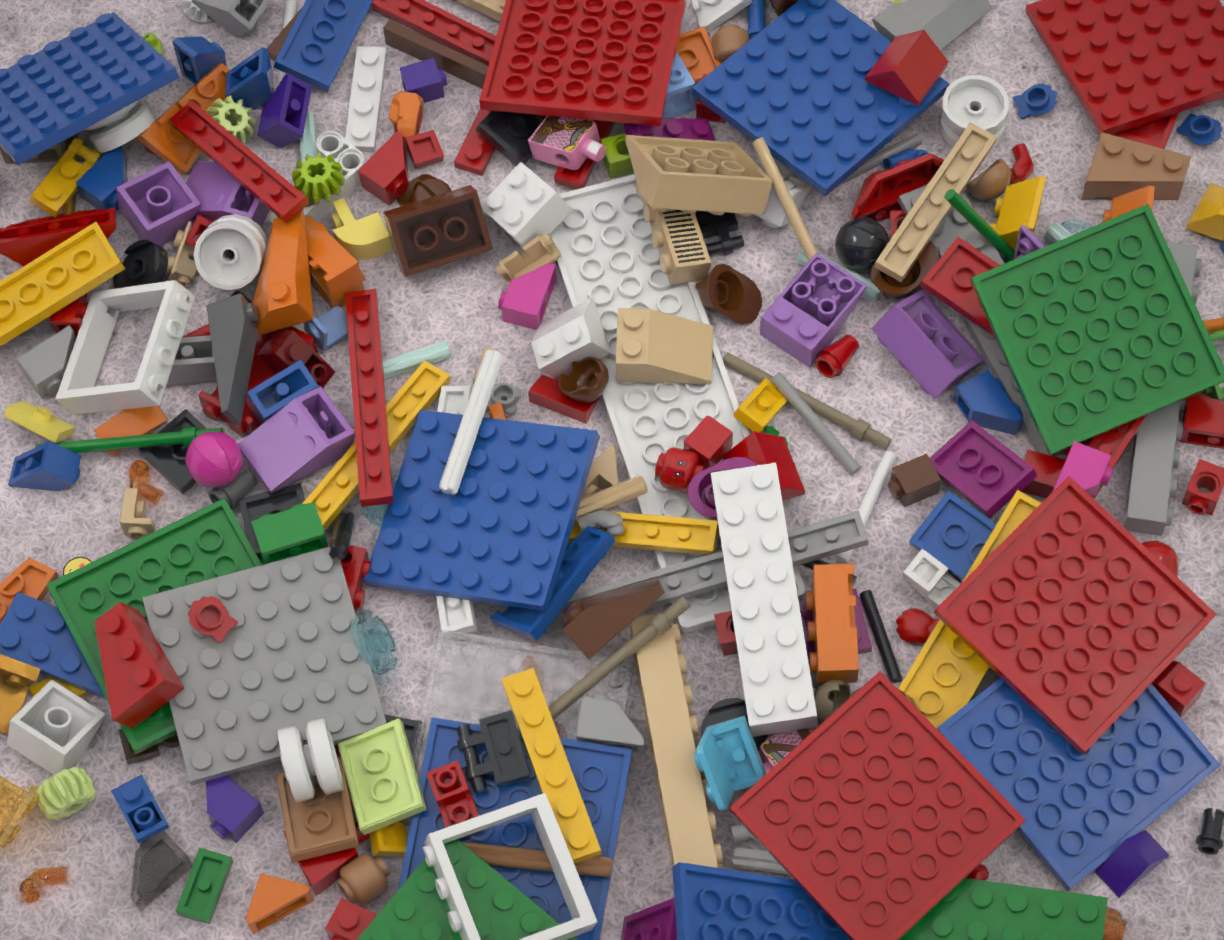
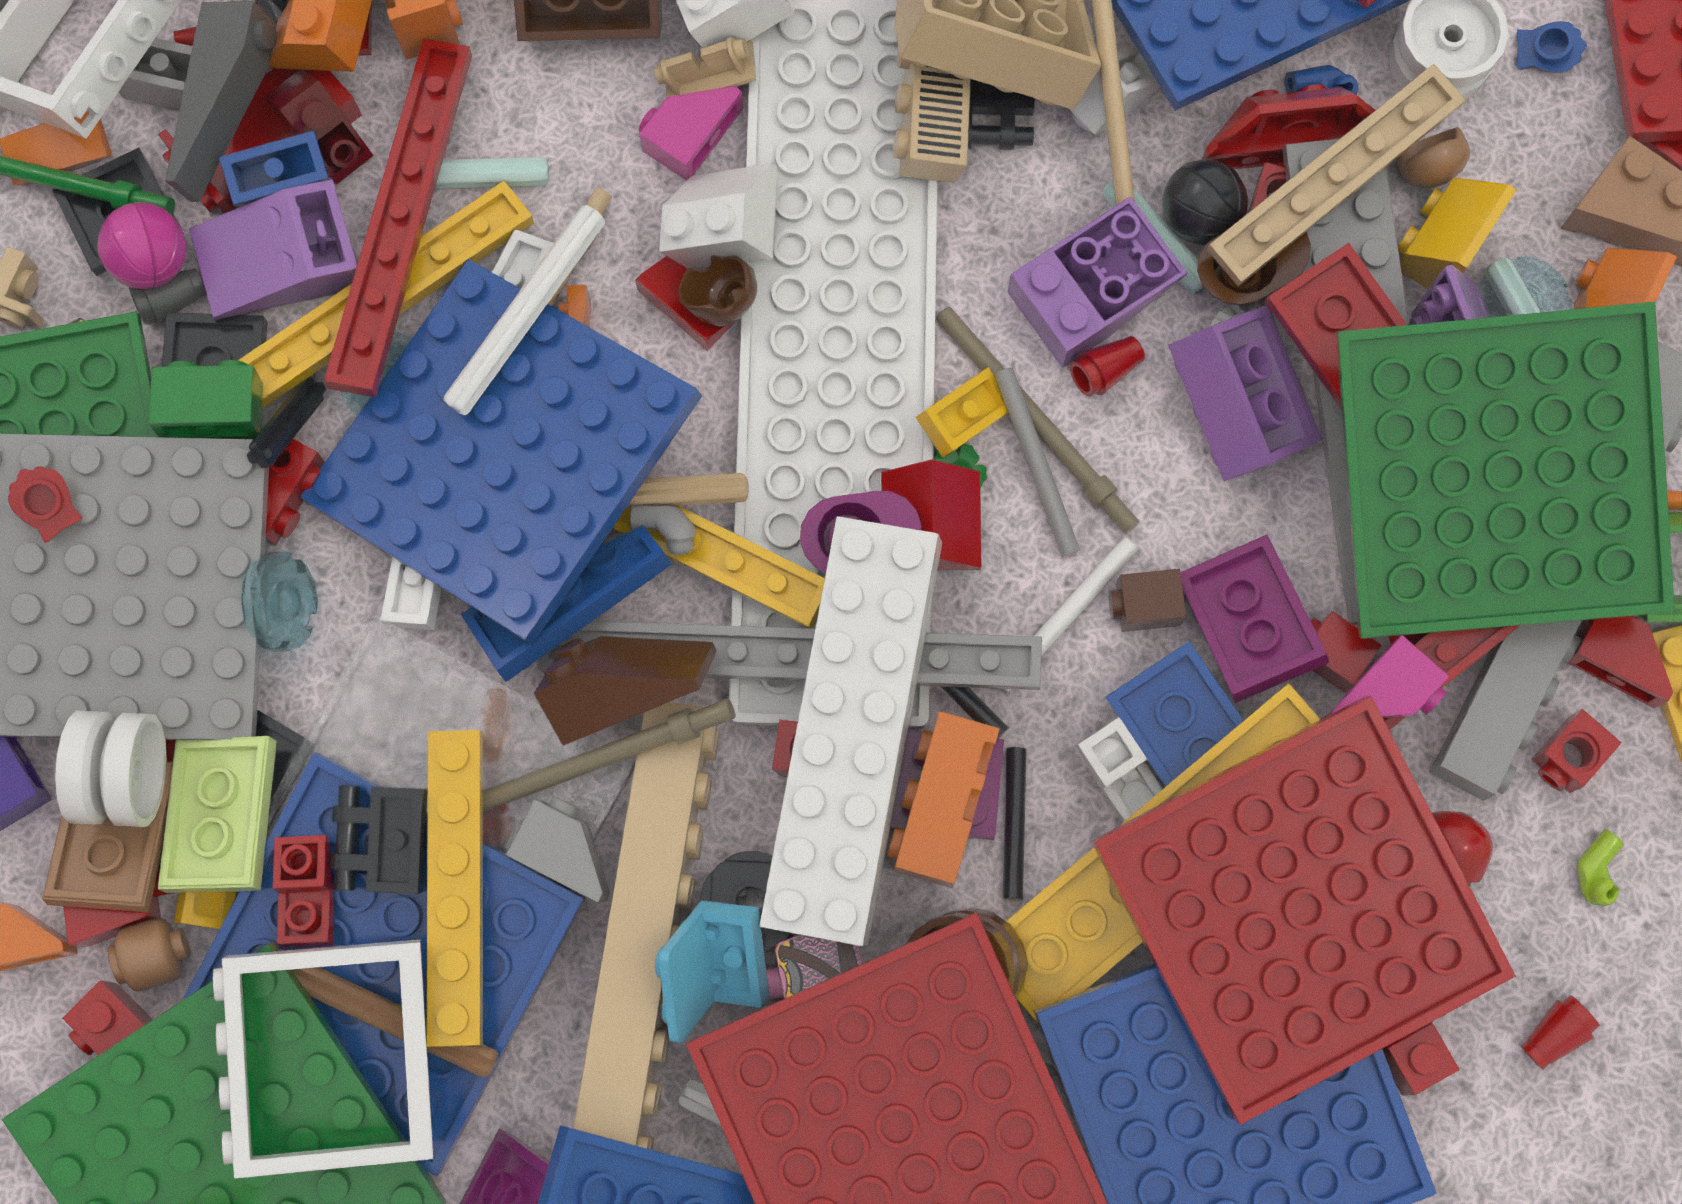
camera: 15 degrees right, 15 degrees up
(139, 478) = (42, 240): clear orange arm -> none
(328, 328) = (384, 84): medium blue bracket -> none
(508, 391) = (603, 262): light grey plate -> none
(602, 473) = (698, 439): tan slope -> none
(662, 348) = (850, 276): tan slope -> none
(677, 468) = (805, 476): red head -> none
(709, 441) = (863, 450): red panel -> none
(730, 294) = (983, 219): reddish brown piece -> none
(830, 697) = (901, 910): dark tan hair -> none
(877, 159) = (1333, 56): light grey bar -> none
(915, 625) = (1071, 825): red animal -> none
(980, 224) = (1388, 234): green bar -> none
(987, 404) = (1299, 514): blue slope -> none
(1023, 166) = (1494, 146): red arm -> none

